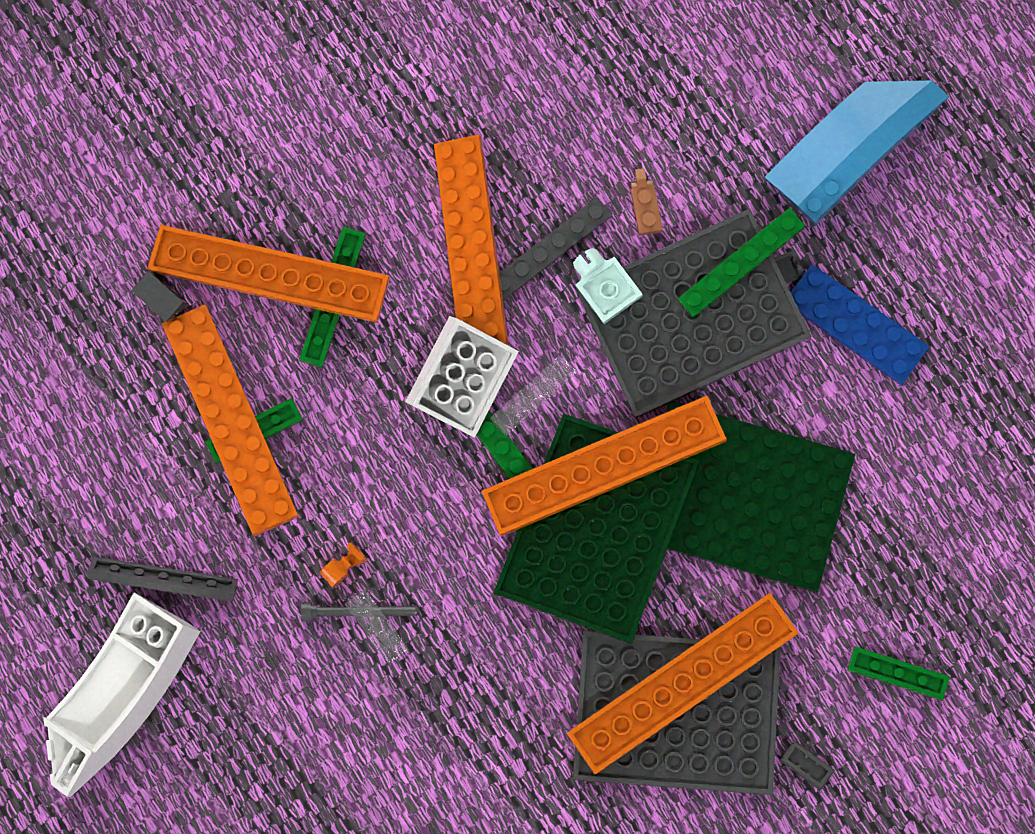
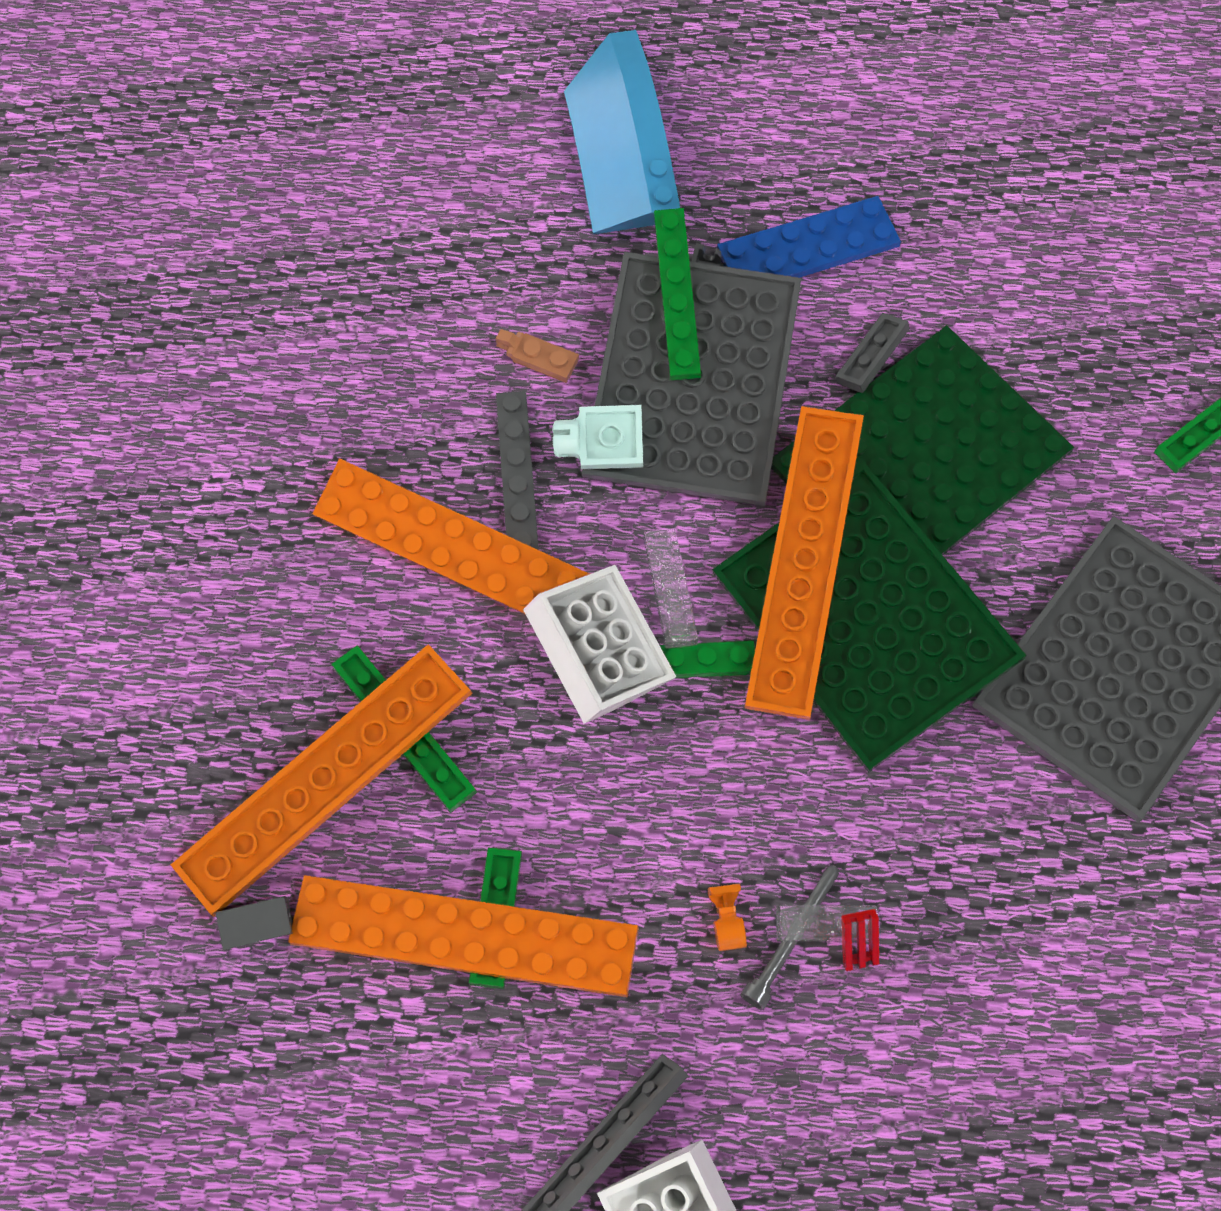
camera: 55 degrees left, 10 degrees down
(371, 658) = (873, 935): none -> red tile
(682, 683) = (1103, 640): orange plate -> none
(798, 417) = (872, 352): none -> dark grey plate

